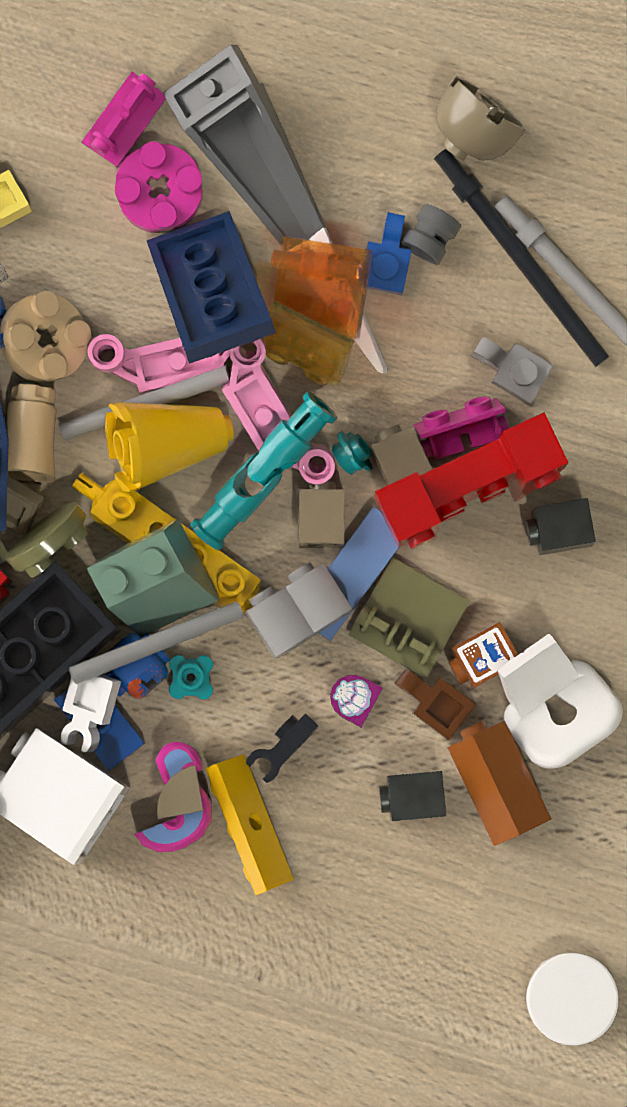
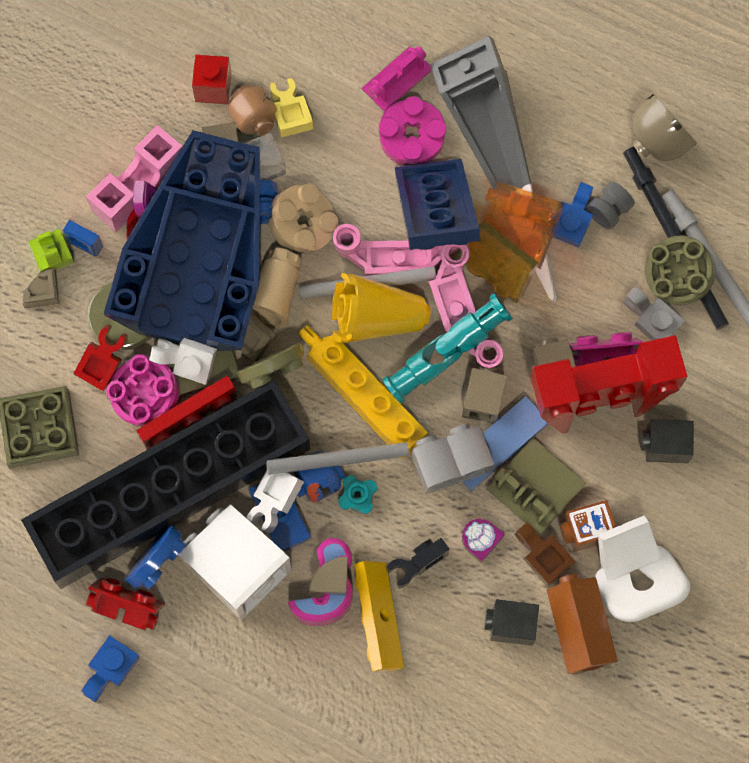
camera: 10 degrees right, 10 degrees down
(153, 580) = (346, 412): sand green slope -> none
(352, 453) = (517, 352): teal plate -> none
(535, 301) = (680, 270): none -> olive tile

